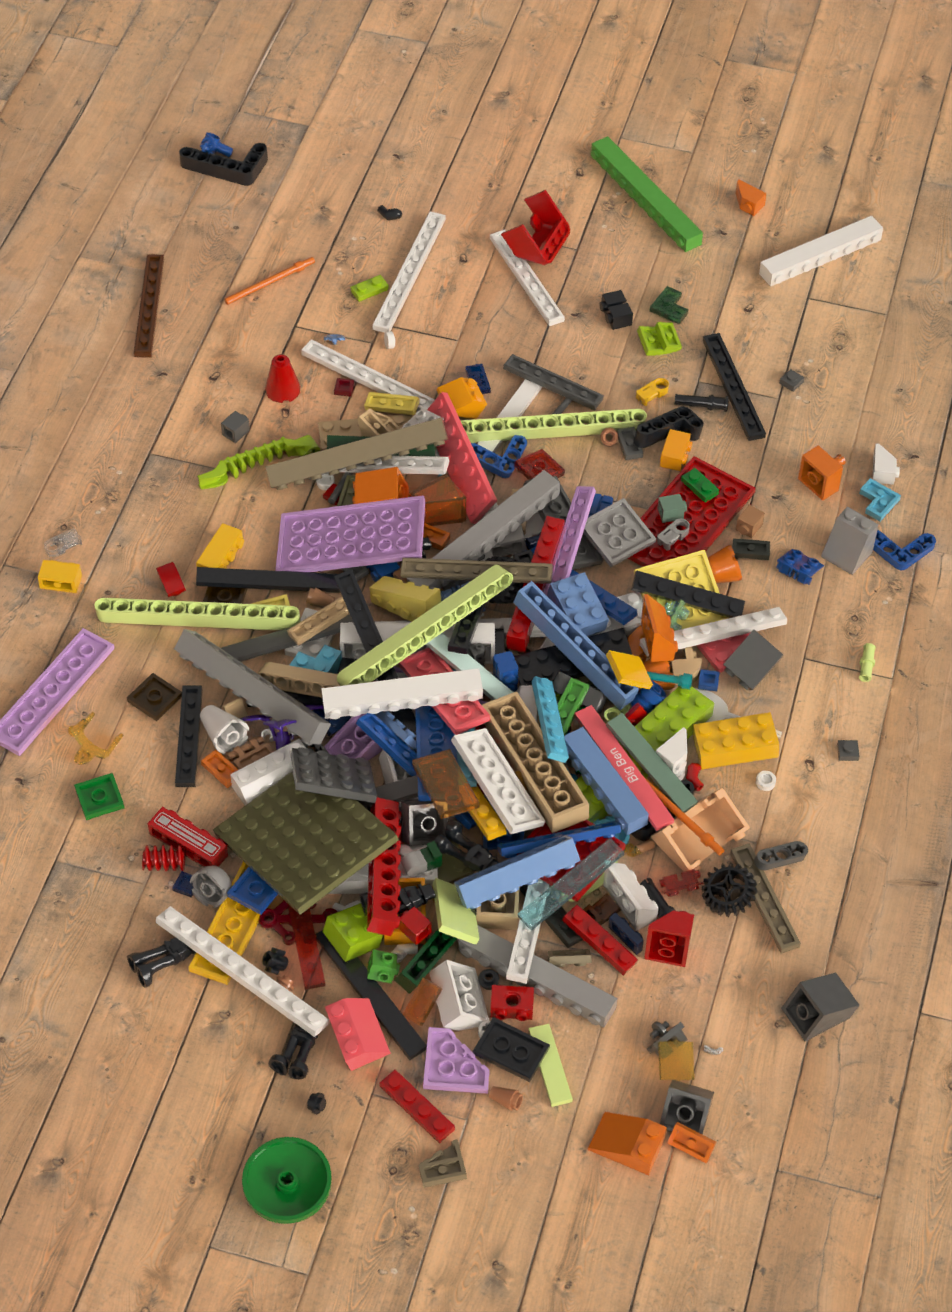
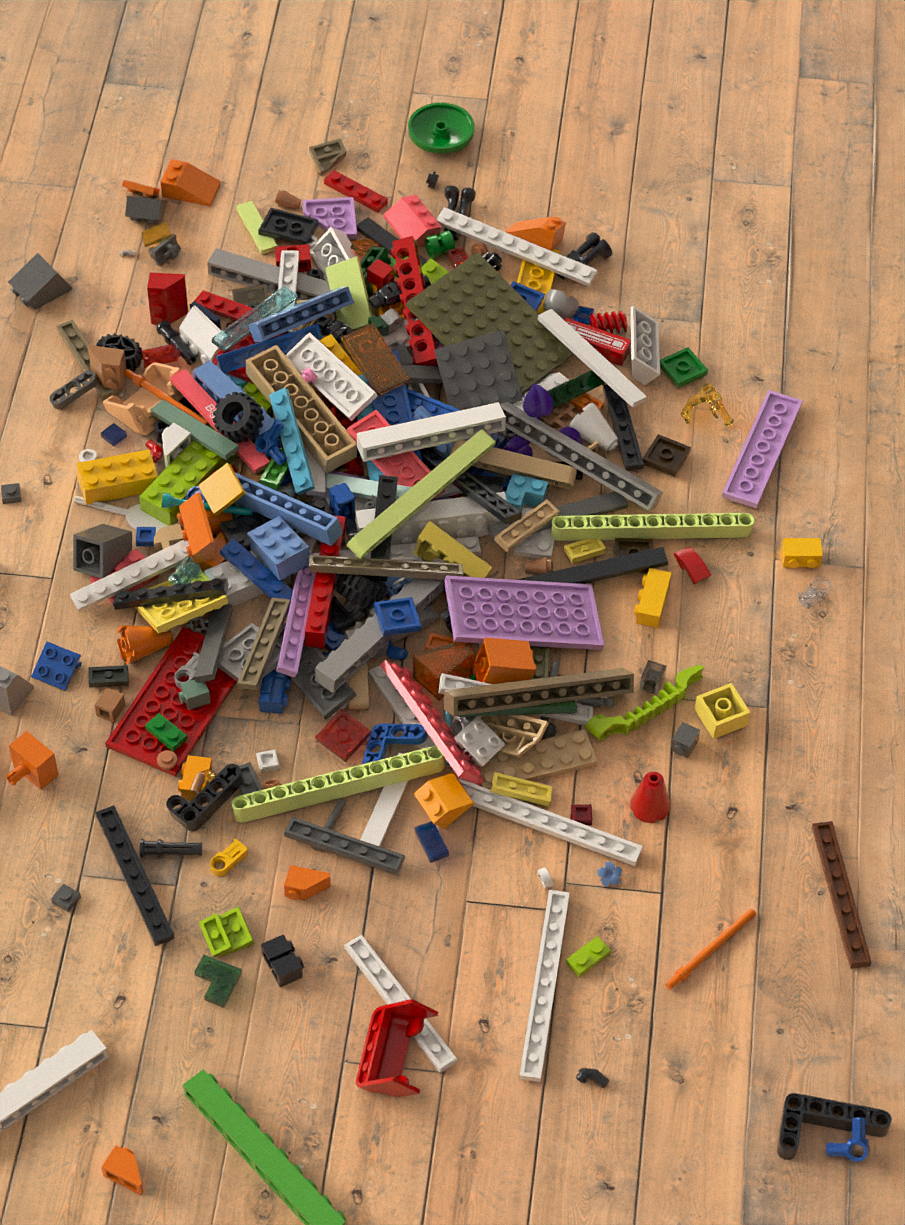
camera: 170 degrees right, 0 degrees up
(135, 812) = (644, 347): none -> white slope
(194, 439) = (722, 711): none -> light yellow brick
(202, 793) = (592, 358): none -> white tile
(210, 993) = (543, 232): none -> orange slope
(236, 764) = (575, 387): none -> dark green tile
(245, 481) = (652, 677): none -> clear smoke brick
(329, 994) = (439, 244): none -> green wheel
(473, 526) = (397, 616): none -> blue tile
(520, 779) = (309, 375): none -> bright pink plate
(569, 719) = (270, 444): none -> blue axle
(589, 360) = (304, 882): none -> orange slope
(602, 527) = (264, 644): none -> dark tan plate
(604, 735) = (229, 408): none -> black tyre
(610, 463) = (268, 761): none -> white tile
(653, 533) = (213, 644): none -> dark grey tile
(674, 429) = (200, 778): none -> medium nougat arm
(700, 460) = (167, 760): none -> nougat plate
(741, 802) = (113, 434): none -> clear blue tile
(743, 850) = (108, 366): none -> medium nougat slope

